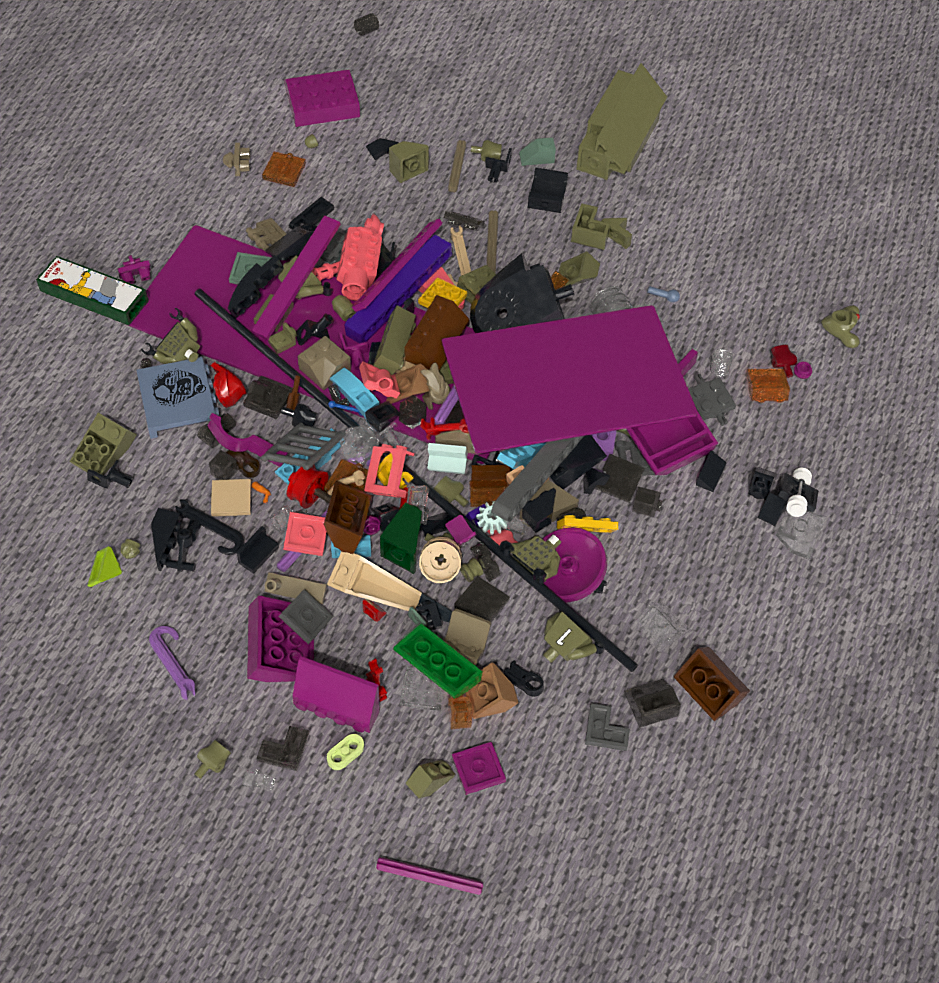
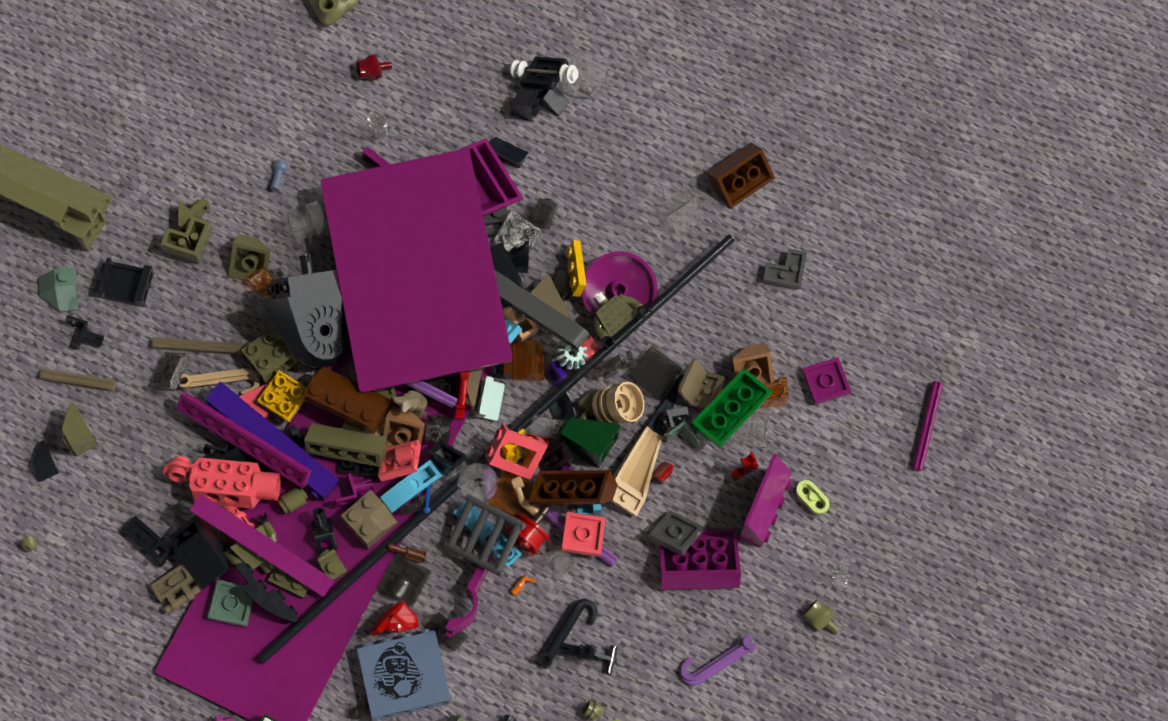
camera: 90 degrees left, 15 degrees up
(164, 531) = (575, 677): black slope -> none
(178, 344) = (340, 675): olive torso -> none
(223, 466) = (496, 621): clear smoke brick -> none
(231, 497) = (532, 613): tan tile -> none
(235, 159) = (46, 625): dark tan hips -> none
(244, 459) = (484, 603): dark brown piece -> none
(256, 550) = (596, 584): black panel -> none
(284, 169) = (72, 573): clear orange plate -> none
(287, 754) = (817, 547): clear smoke brick -> none
(293, 586) = (636, 557): dark tan piece -> none
(300, 415) = (435, 544): black piece -> none
(429, 778) = (838, 422): olive slope -> none
(451, 490) = (527, 398): olive piece -> none
(460, 530) = (586, 384): magenta bracket -> none
(471, 570) = (620, 377): olive wheel -> none
(488, 149) = (57, 343): olive piece -> none
(521, 679) = (735, 340): black piece -> none
(539, 511) = (565, 304): black slope -> none
(567, 639) = (698, 296): olive torso -> none
(653, 702) = (760, 226): clear smoke slope -> none
(711, 399) = (418, 141): dark grey plate -> none
(768, 385) = (405, 86): clear orange plate -> none
(803, 370) = (385, 51): magenta plate -> none

